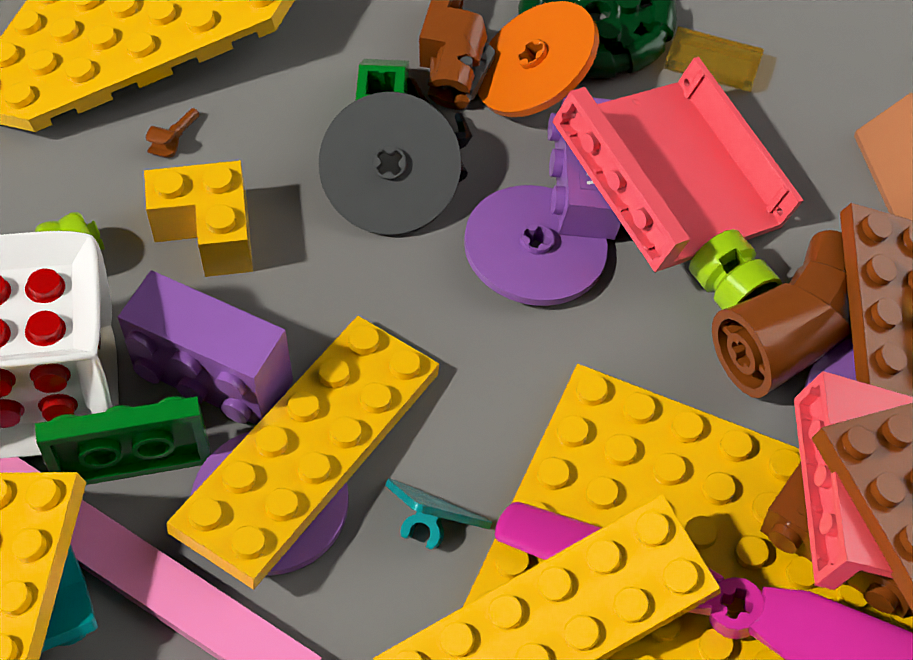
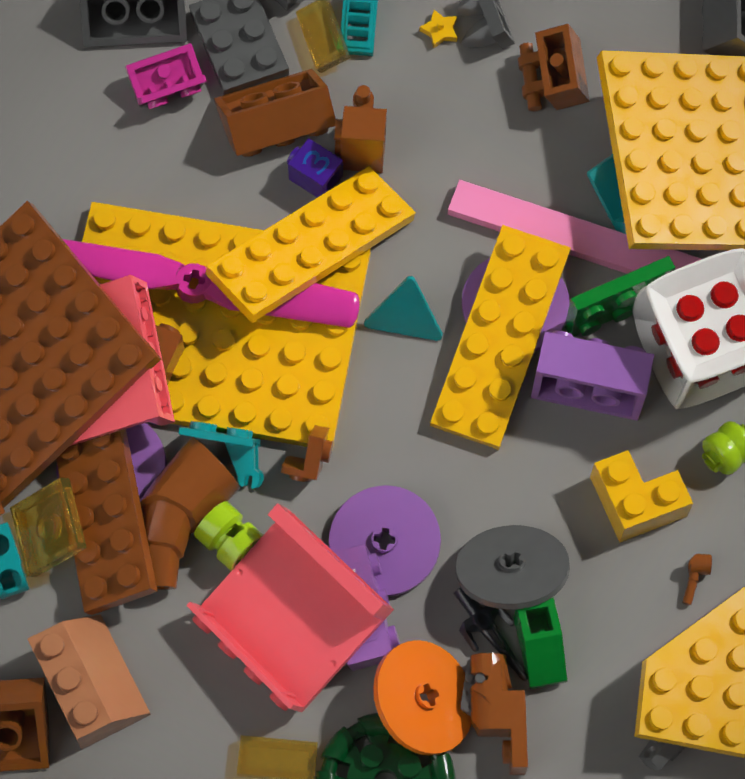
camera: 165 degrees right, 10 degrees up
(615, 343) = (318, 451): none -> dark orange bracket
(728, 375) = (240, 446): none -> teal plate

